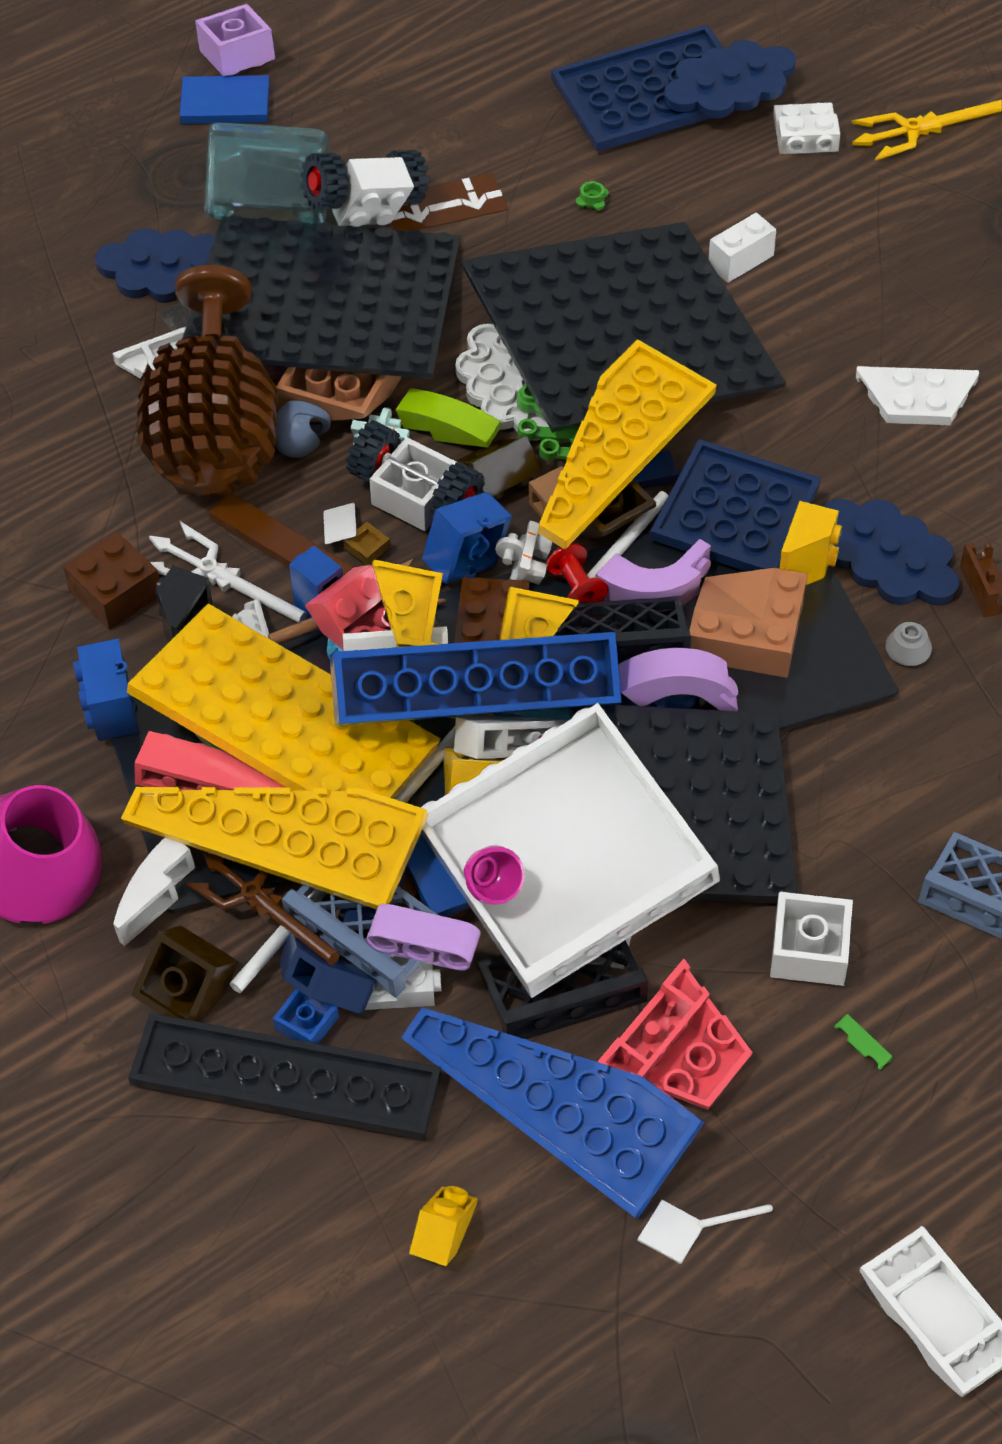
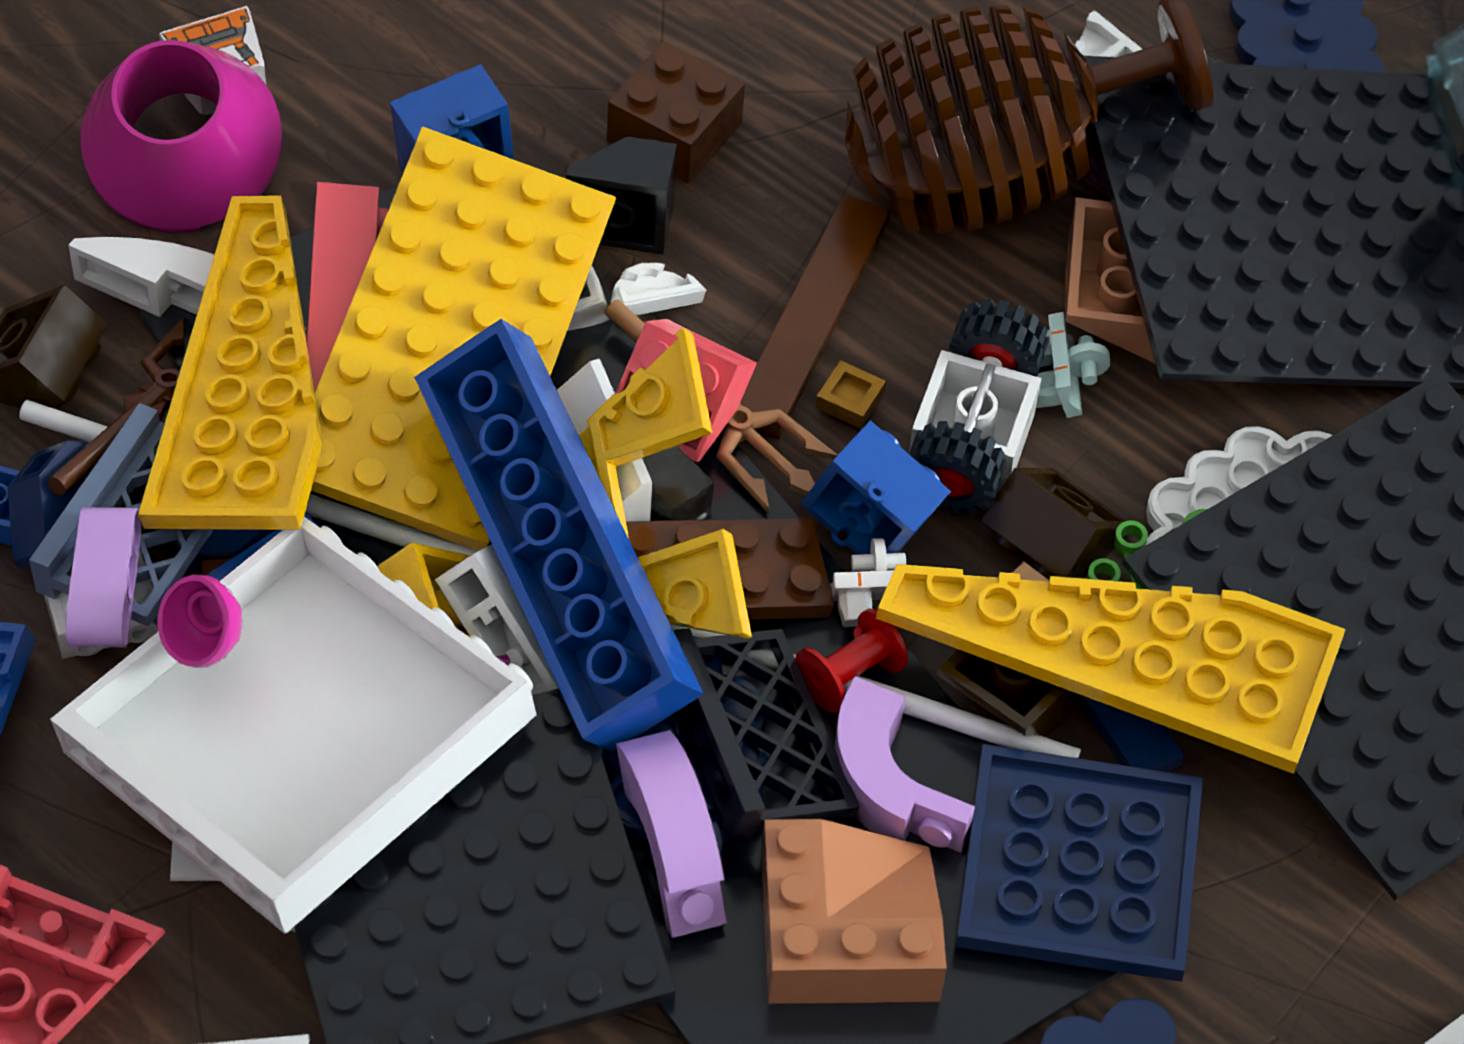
camera: 70 degrees right, 0 degrees up
(222, 575) = (741, 232): white piece -> none
(294, 433) = (1025, 249): sand blue helmet -> none
(311, 575) = (733, 318): blue brick -> none
(339, 523) = (878, 353): white sticker -> none
(447, 418) = (1126, 438): lime slope -> none
(572, 1003) = (89, 831): black fence -> none
(811, 541) = (1007, 962): yellow slope -> none

